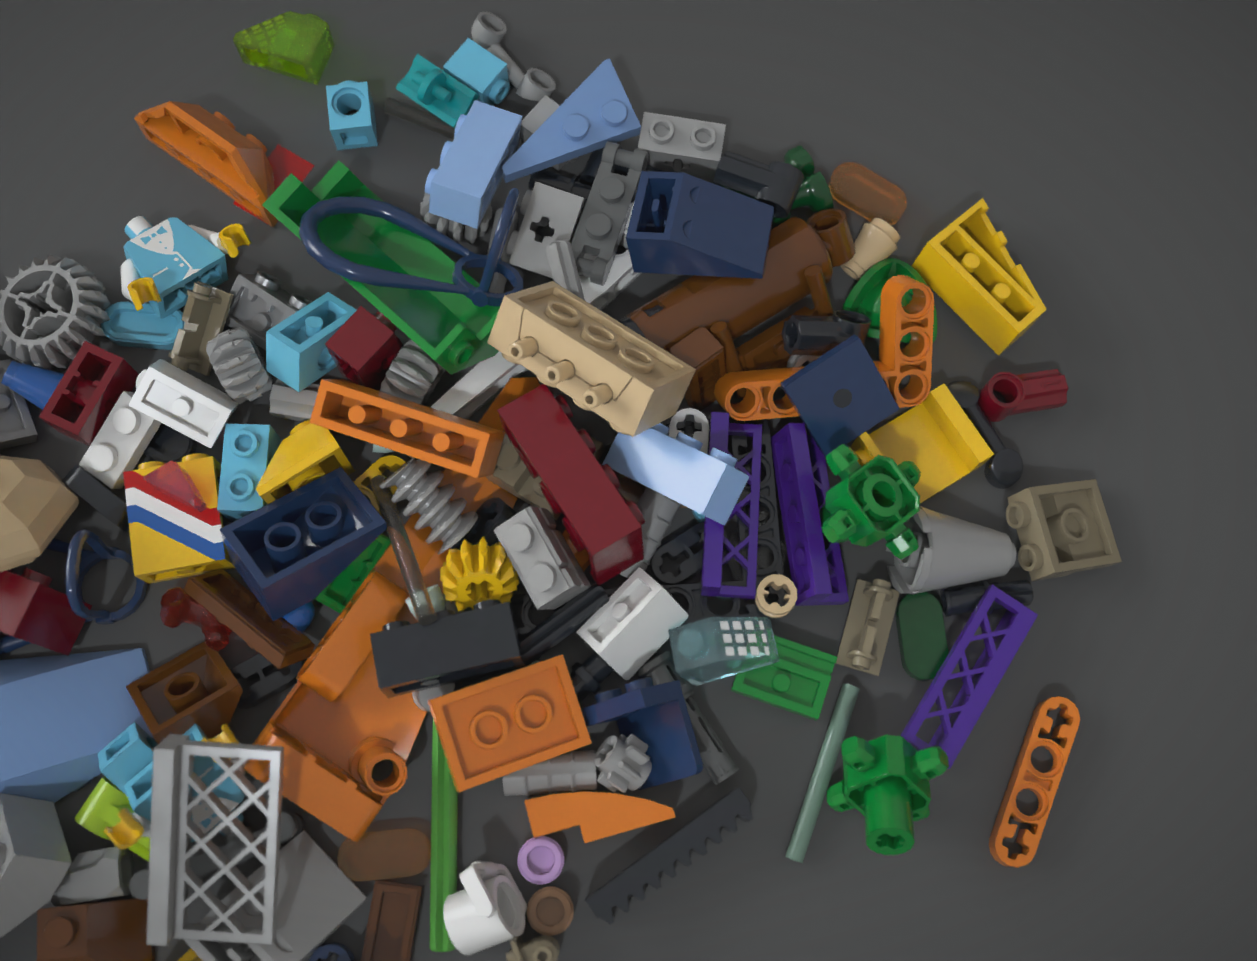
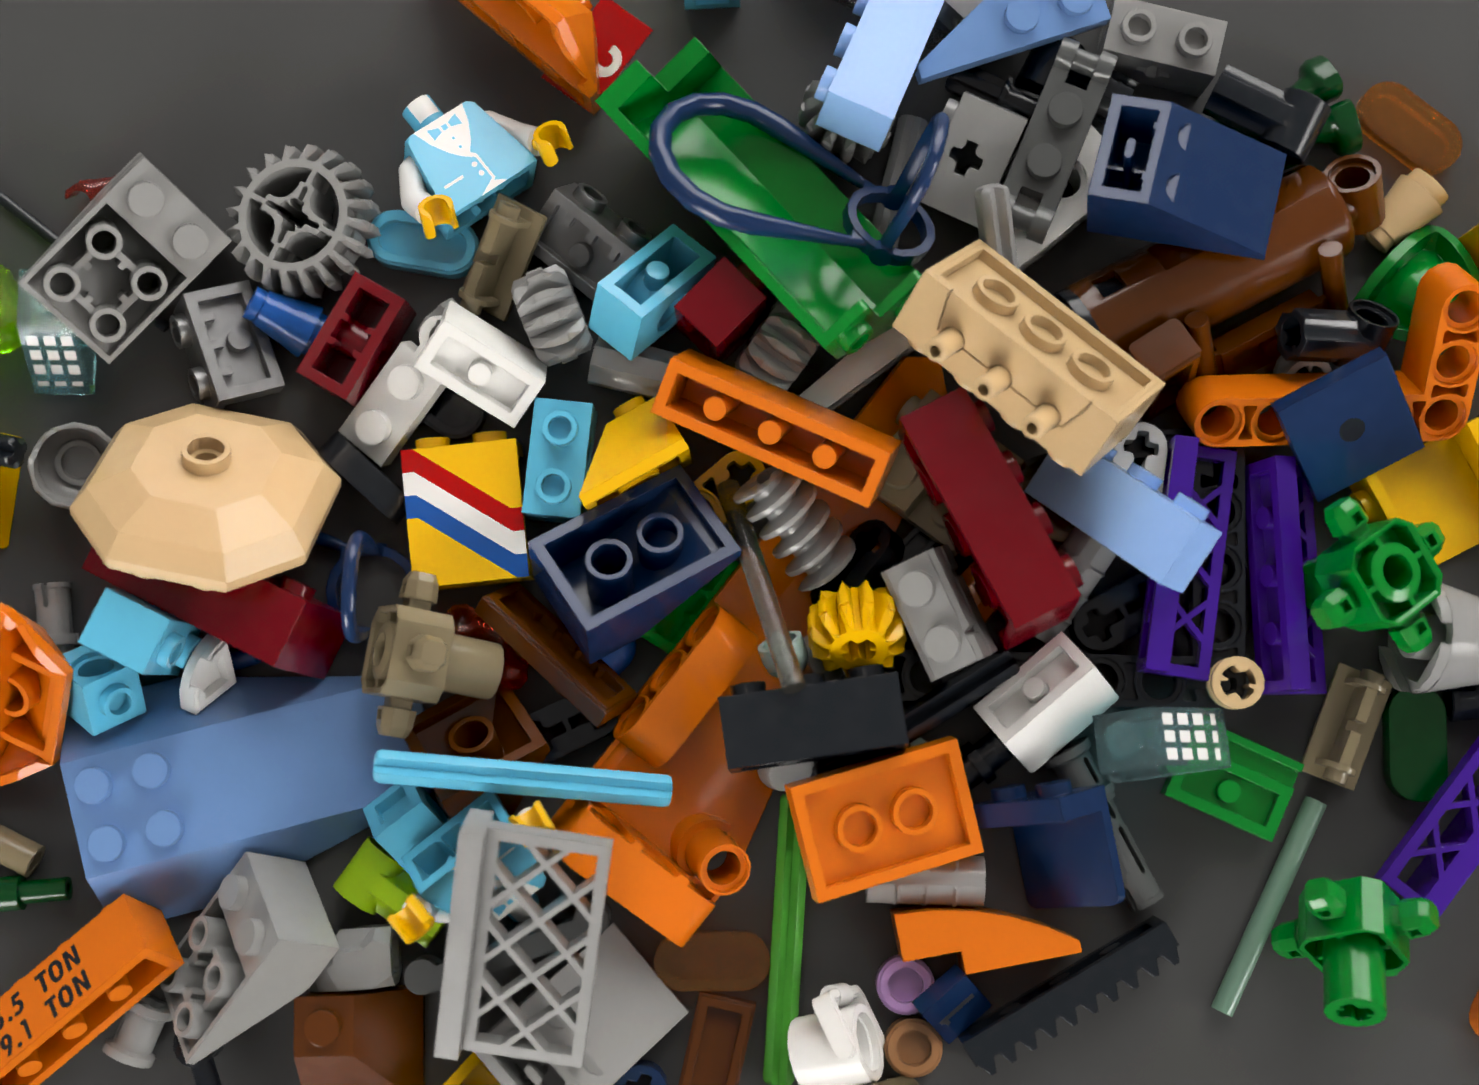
camera: 10 degrees right, 10 degrees up
(136, 625) = (418, 657): none -> dark tan piece
(176, 483) = (474, 477): clear pink slope -> none
(215, 711) = (522, 778): none -> medium azure axle
(577, 871) = (952, 1003): none -> dark blue tile
(622, 763) = (1020, 878): light grey gear -> none

